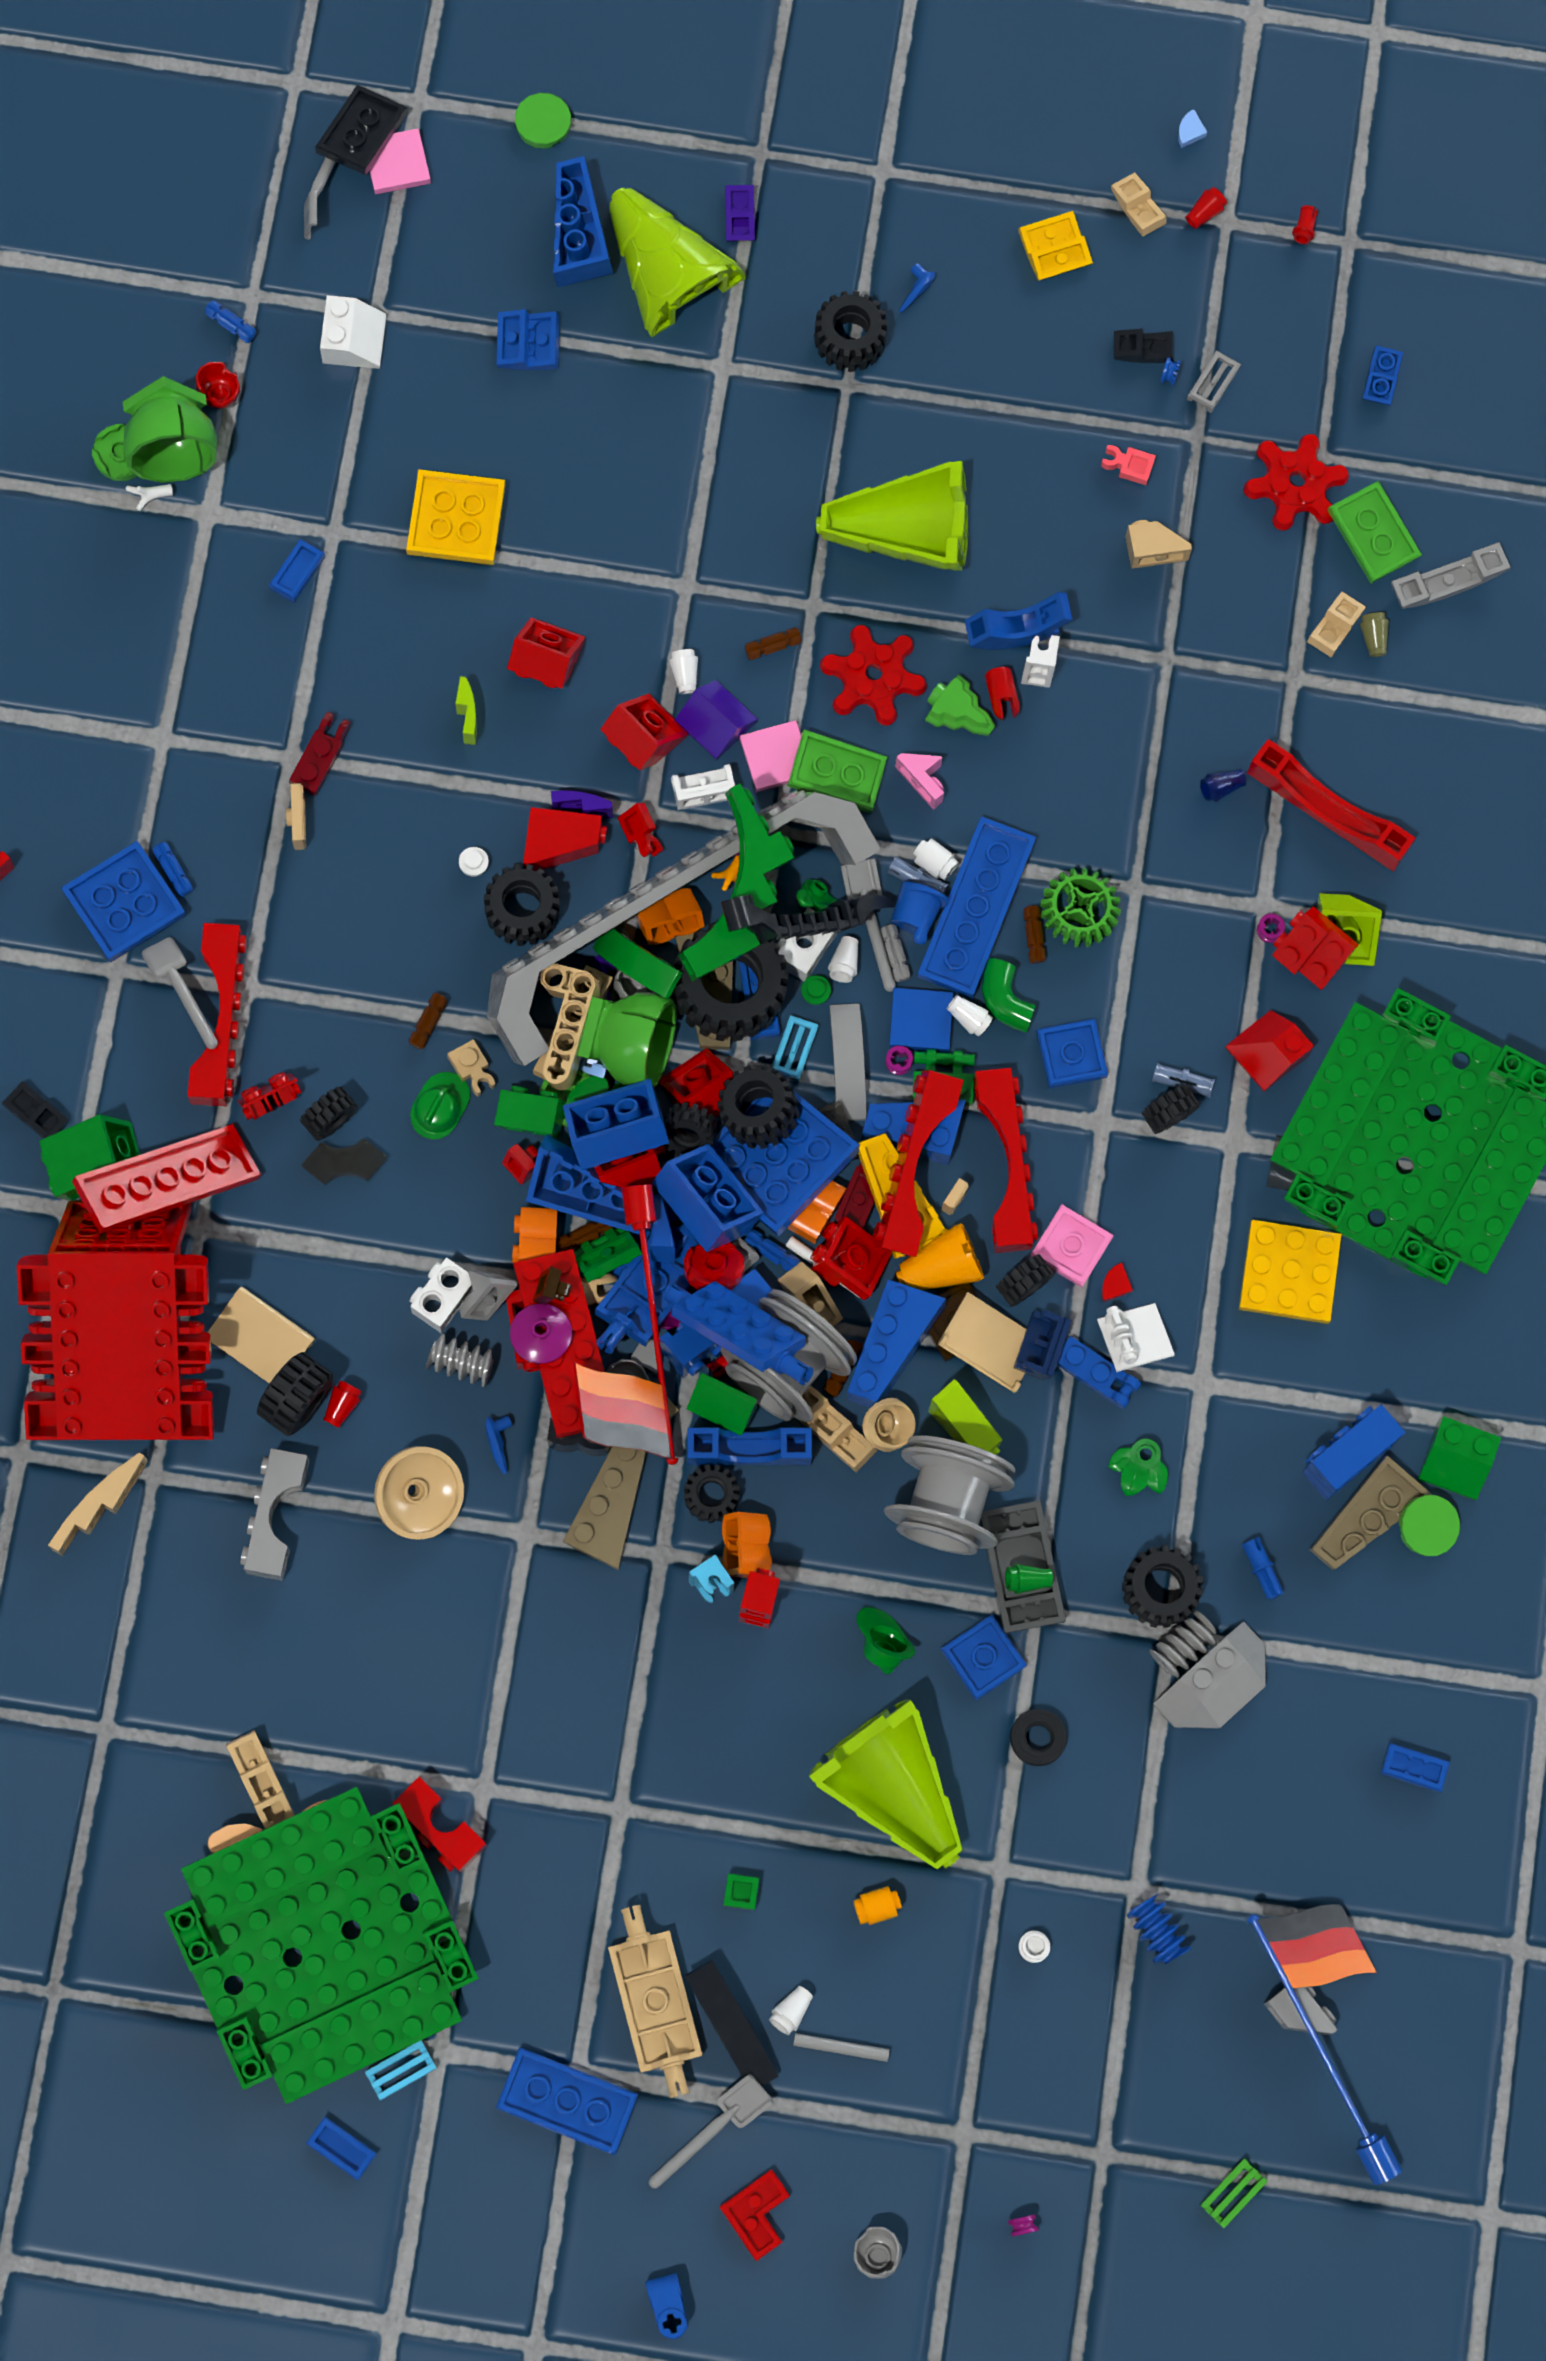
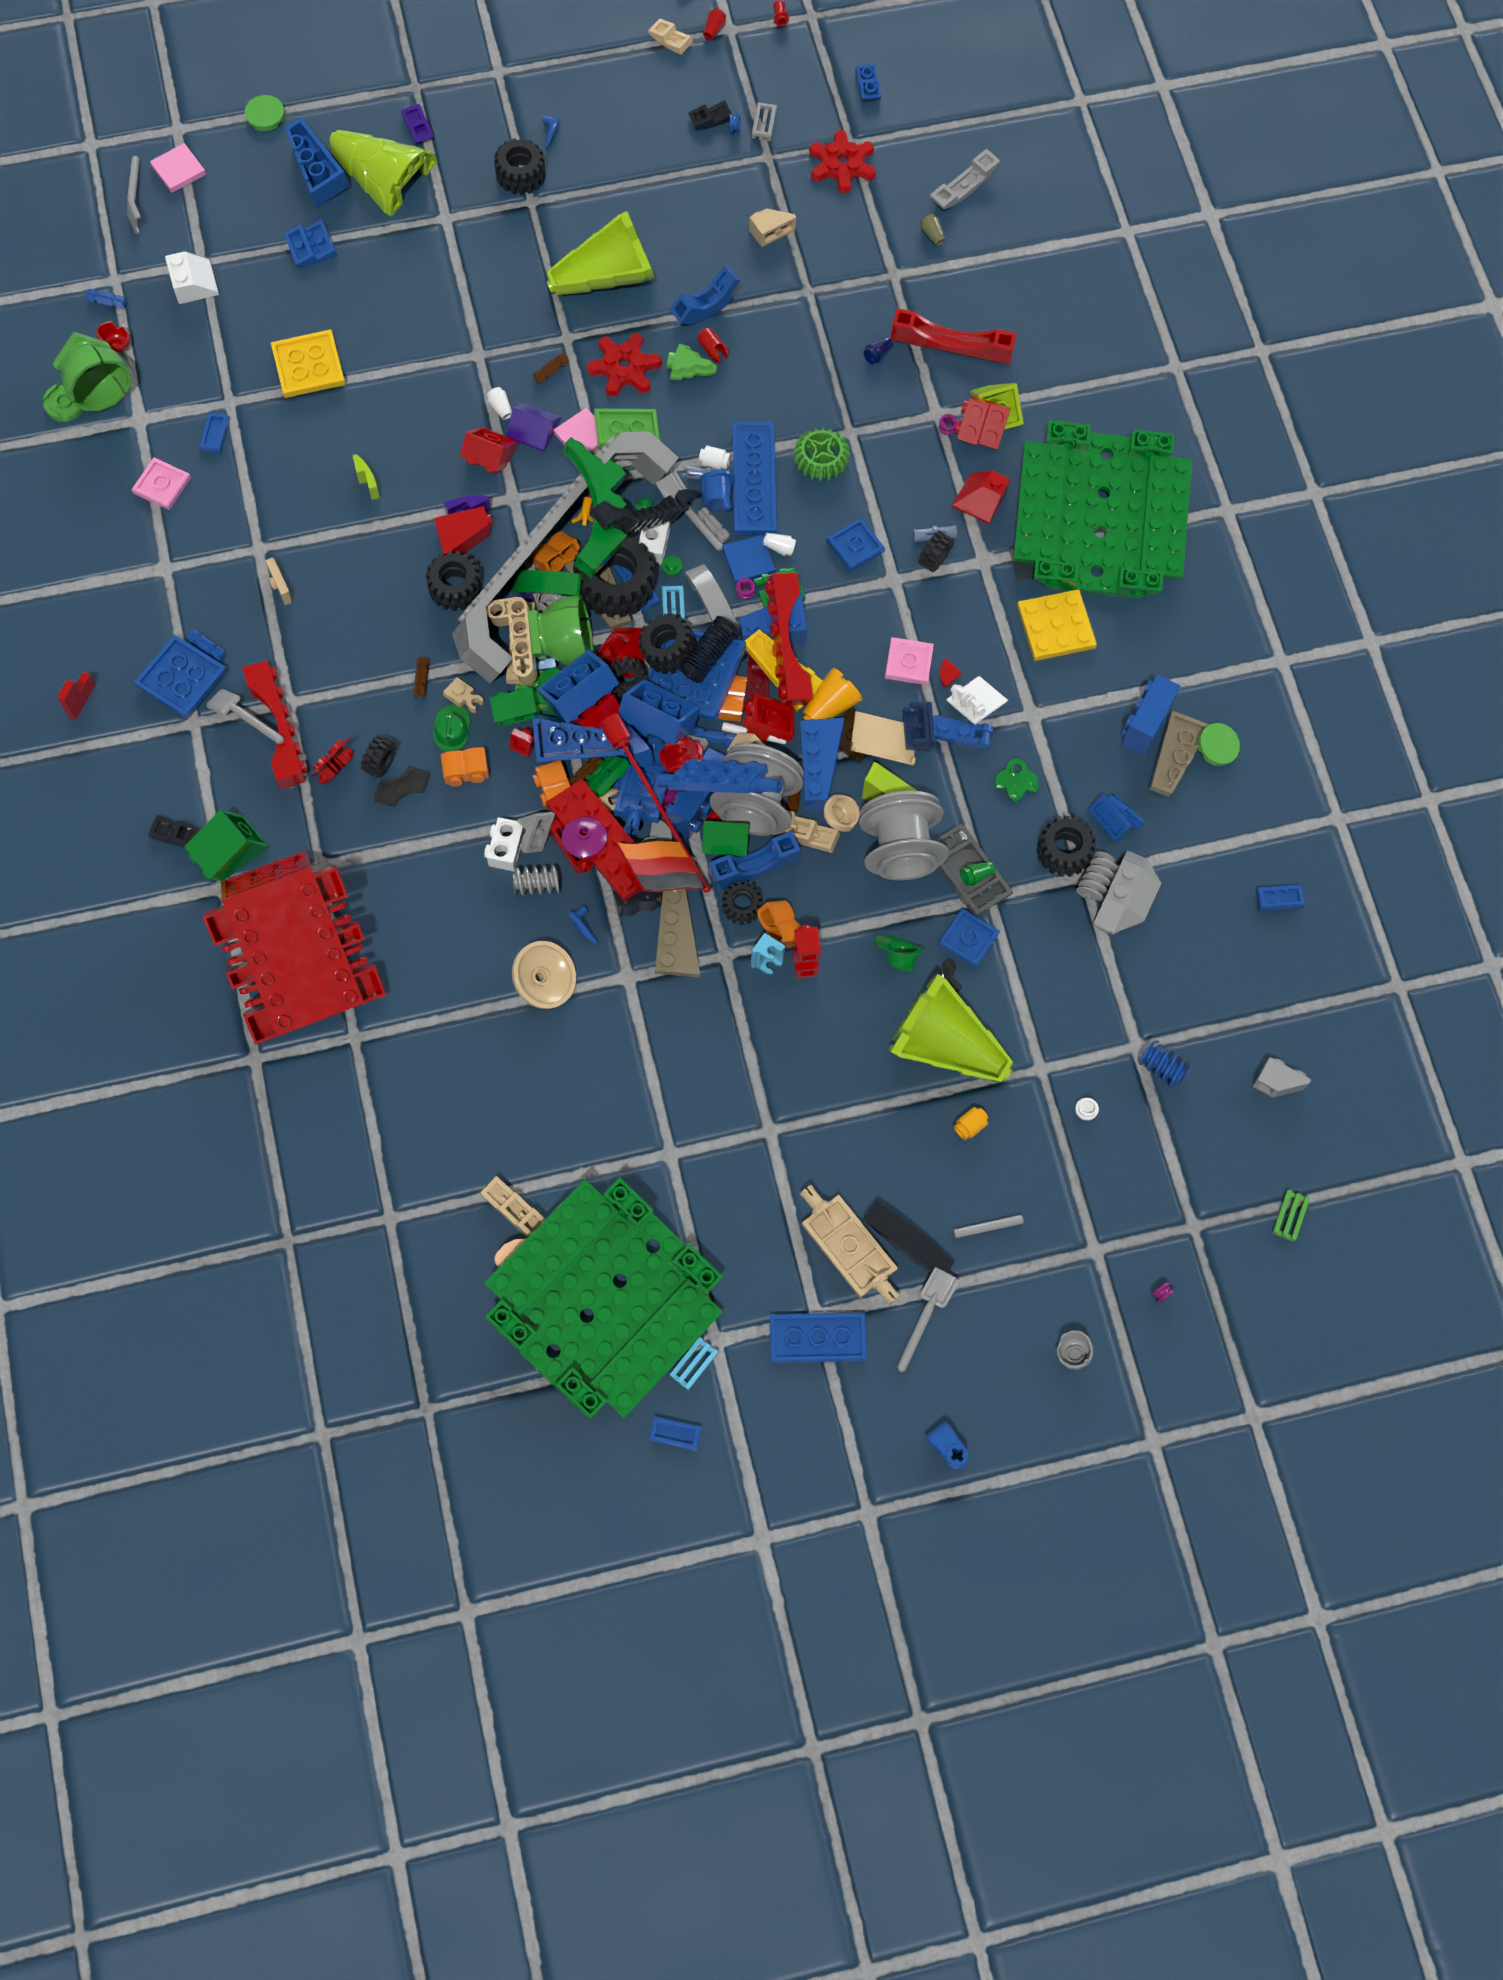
camera: 20 degrees left, 5 degrees down
(106, 1495) = (326, 1061): tan slope -> none
(150, 493) = (94, 420): white bar -> none
(166, 1178) = (283, 835): plate -> none
(201, 617) = (161, 483): none -> bright pink tile
(258, 1335) = (391, 919): tan piece -> none
(284, 1475) = (455, 1055): light grey arch -> none
(295, 1394) = (431, 942): black tyre -> none
(319, 755) = (277, 539): dark red hinge -> none
(341, 1403) = (465, 939): red cone -> none
(361, 130) = (146, 155): black tile -> none
(434, 1168) = (464, 766): none -> orange brick
(456, 1847) = (668, 1198): red arch -> none
(473, 861) = (409, 568): white plate -> none
(545, 653) = (403, 425): red slope -> none
(550, 1287) = (578, 804): dark brown tile -> none
(638, 827) = (511, 509): red plate -> none
(702, 788) = (544, 470): white hinge -> none
(741, 1892) = (875, 1150): green plate -> none
(747, 2214) = (974, 1360): red tile -> none
(790, 2011) = (944, 1215): white cone -> none
(833, 1111) = (692, 672): none -> black piece
(844, 961) = (683, 541): white cone -> none
(917, 772) = (680, 410): bright pink slope -> none
(933, 1698) = (948, 972): none -> clear smoke arm
(955, 1197) = (820, 657): tan tile -> none
(996, 1101) = (821, 589): red arch -> none
(1000, 998) = (796, 527): green cylinder -> none
(1025, 1280) = (890, 689): black tyre -> none
(1034, 934) = (799, 481): reddish brown axle -> none
(1040, 664) = (731, 316): white hinge -> none
(1055, 246) = (628, 77): yellow slope -> none
(1057, 1732) = (1020, 985): black tyre -> none
(1134, 464) = (736, 184): coral plate -> none
(1239, 1569) = (1110, 817): none -> blue plate
(1311, 1952) = (1272, 1036): flag -> none
(1336, 624) = (906, 233): tan slope -> none
(1374, 532) = (905, 172): bright green tile -> none
(1459, 1458) = (1218, 695): green slope -> none

